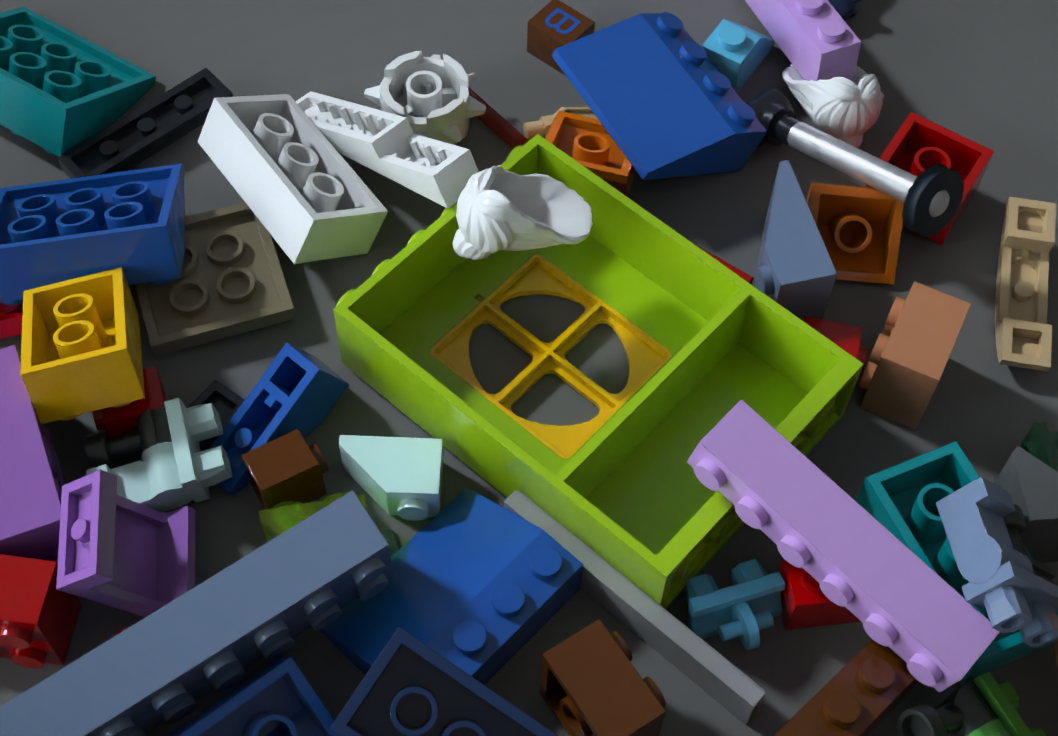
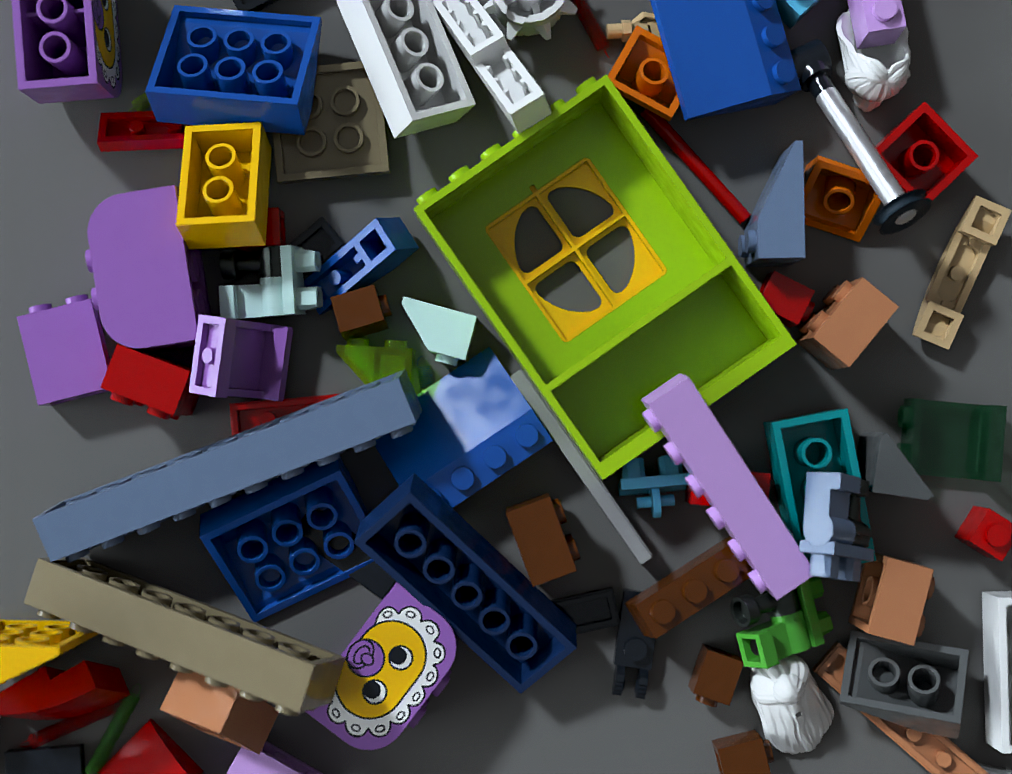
camera: 15 degrees right, 30 degrees up
(517, 214) = (573, 164): white hair -> none

